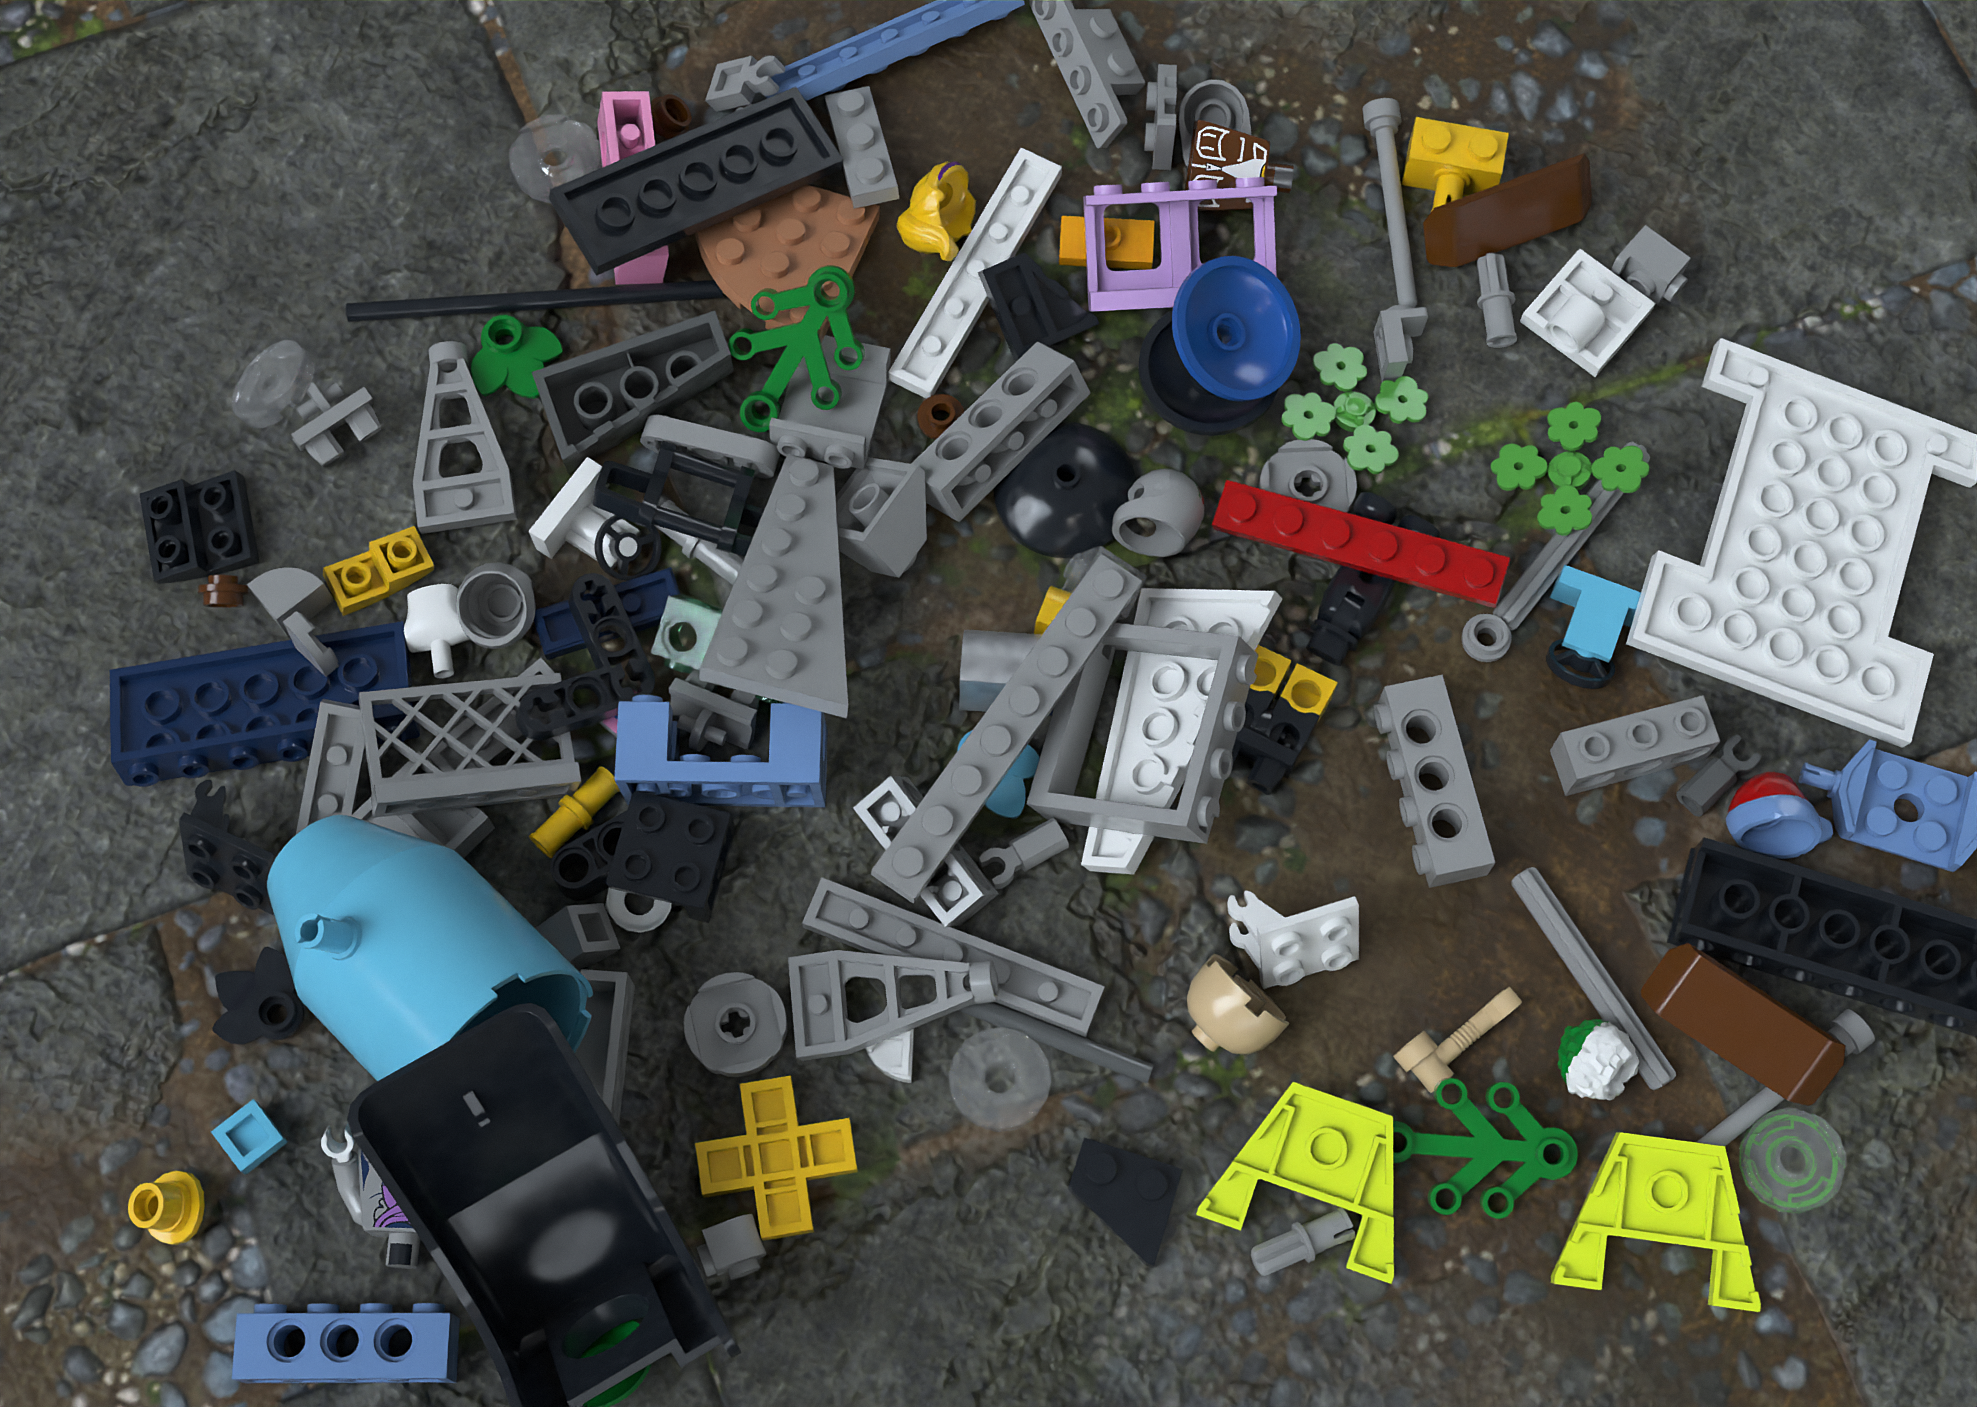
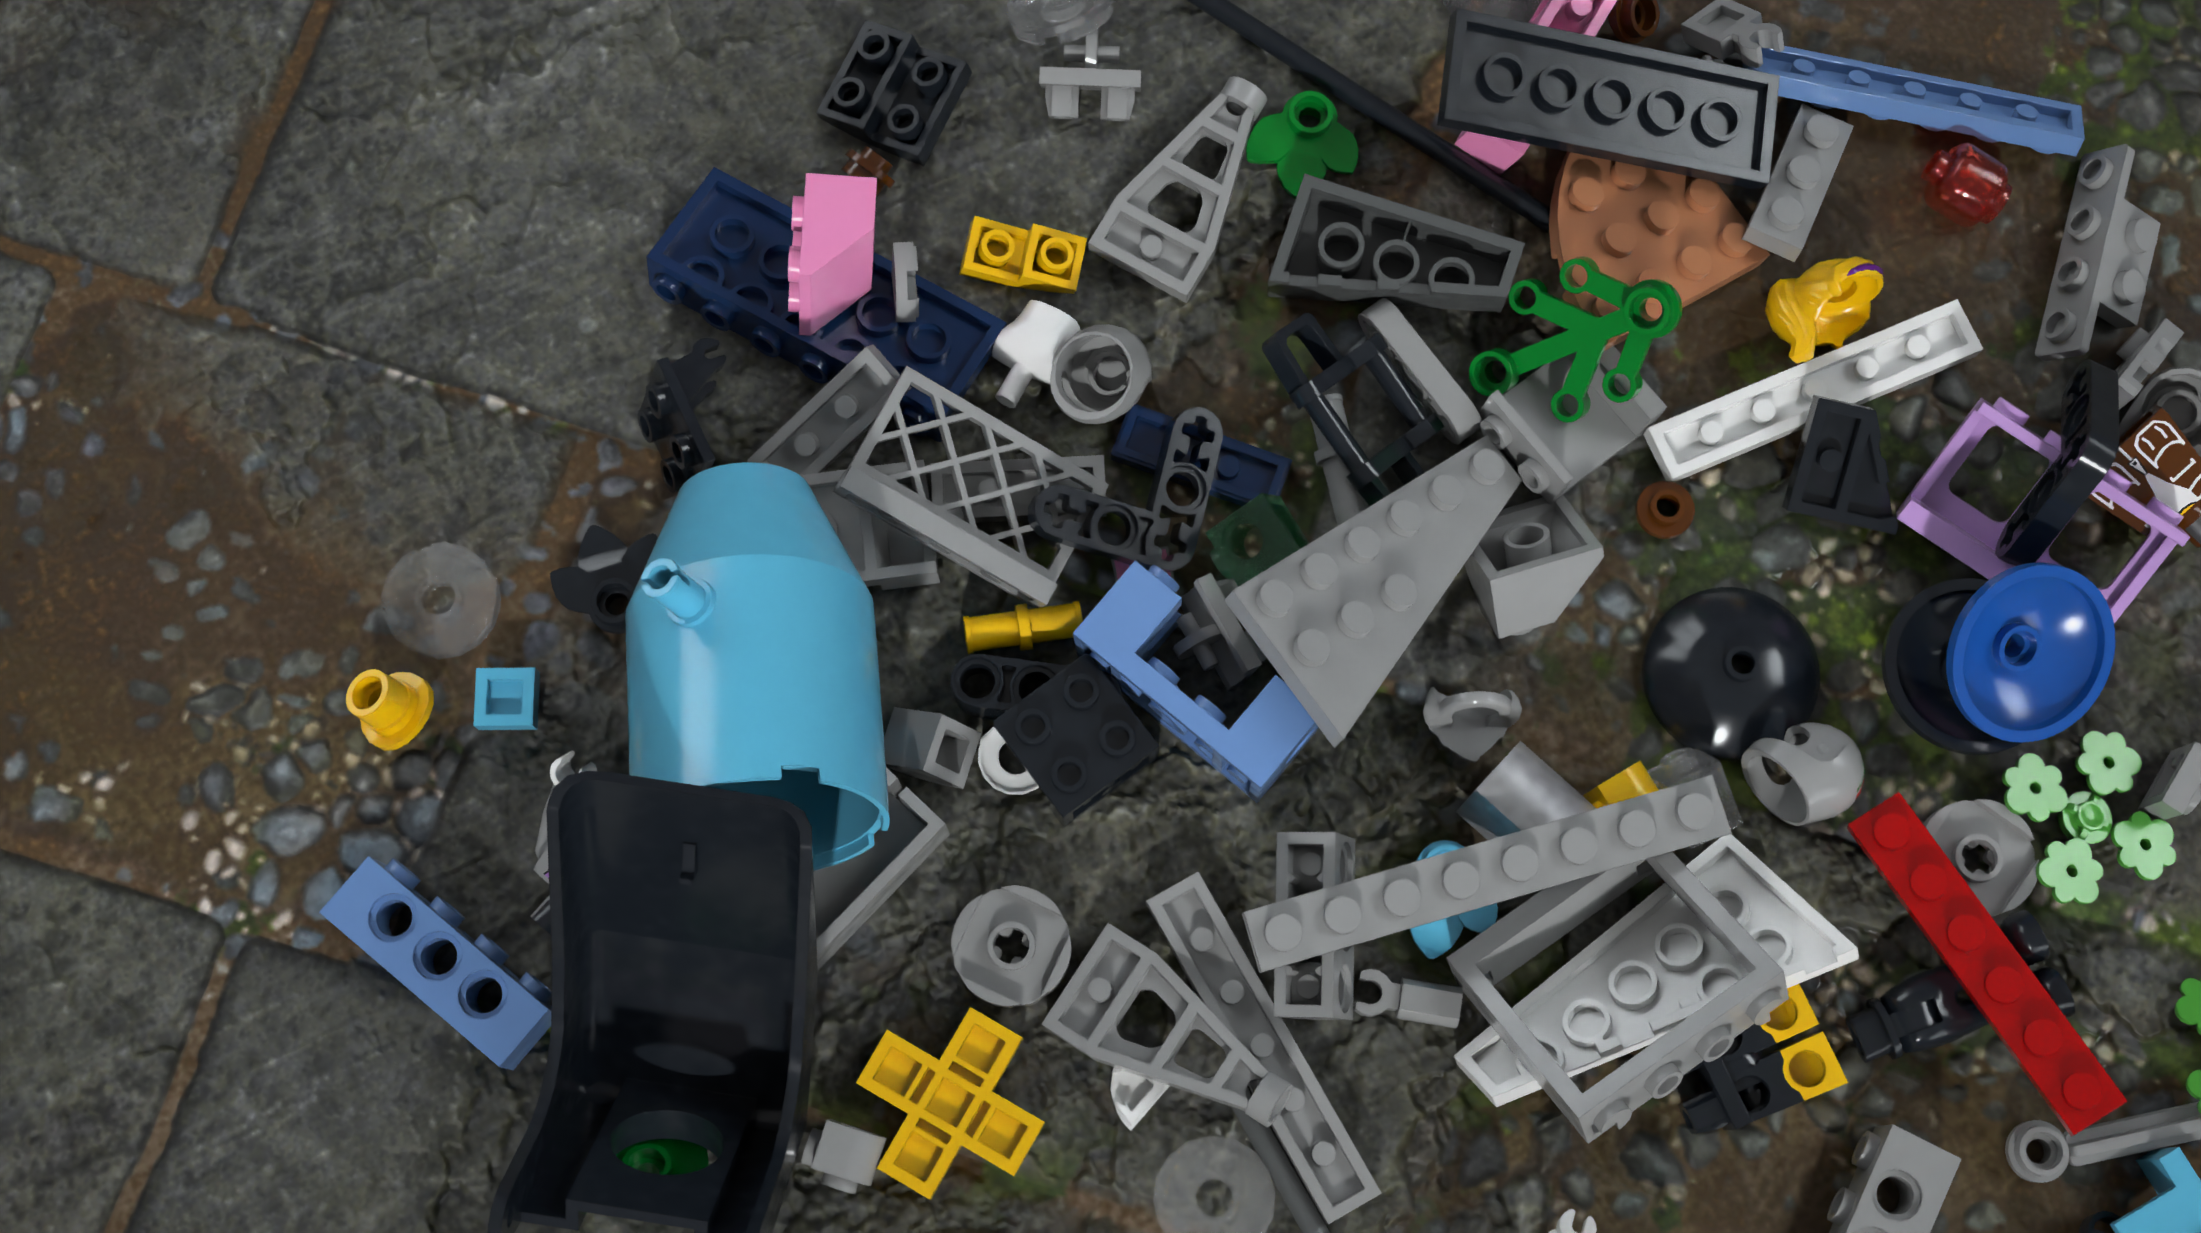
camera: 40 degrees right, 5 degrees up
(167, 1130) = (460, 627): none -> clear tile
(241, 654) = (830, 247): none -> bright pink slope
(288, 591) = (925, 219): light grey brick -> none
(591, 529) = (1247, 374): white piece -> none
(921, 642) = (1470, 720): none -> light grey piece
(969, 72) = (1966, 185): none -> clear red head
(1000, 430) = (1713, 568): light grey brick -> none
(1126, 242) = (1987, 475): light orange plate -> none
(1172, 178) = (2086, 455): none -> black beam

